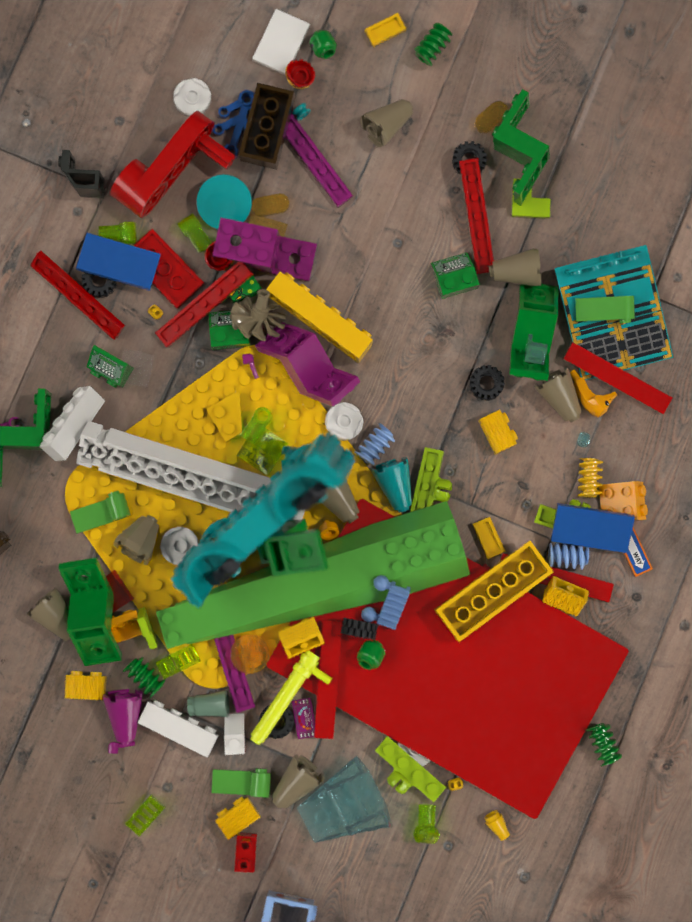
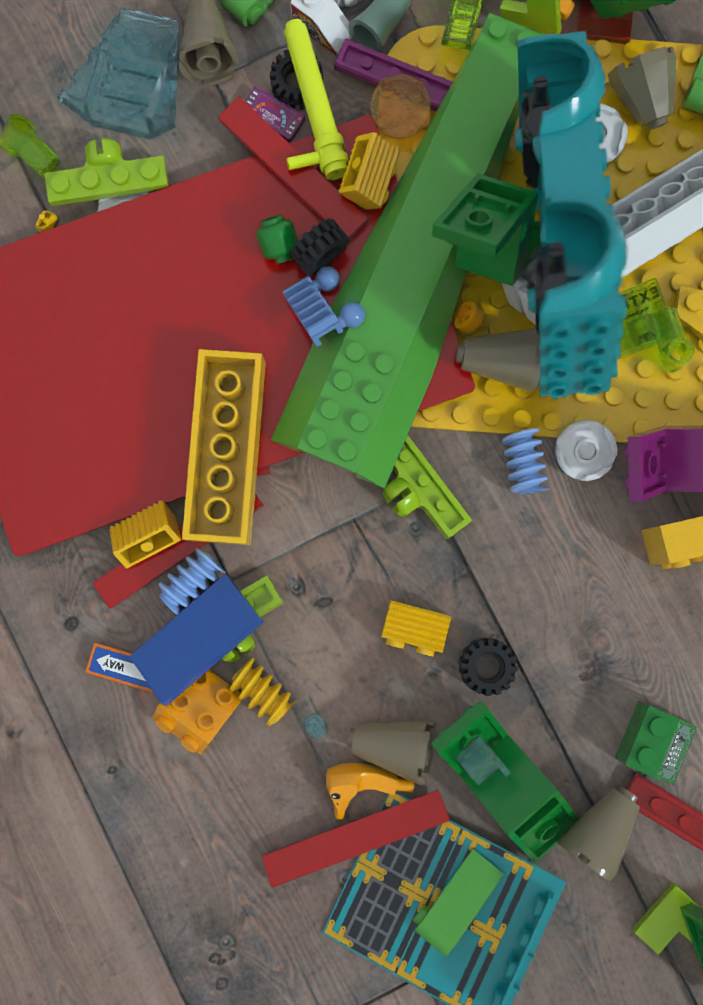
camera: 130 degrees right, 0 degrees up
(395, 482) = (459, 446): teal cone -> none
(488, 537) = (296, 505): yellow tile -> none

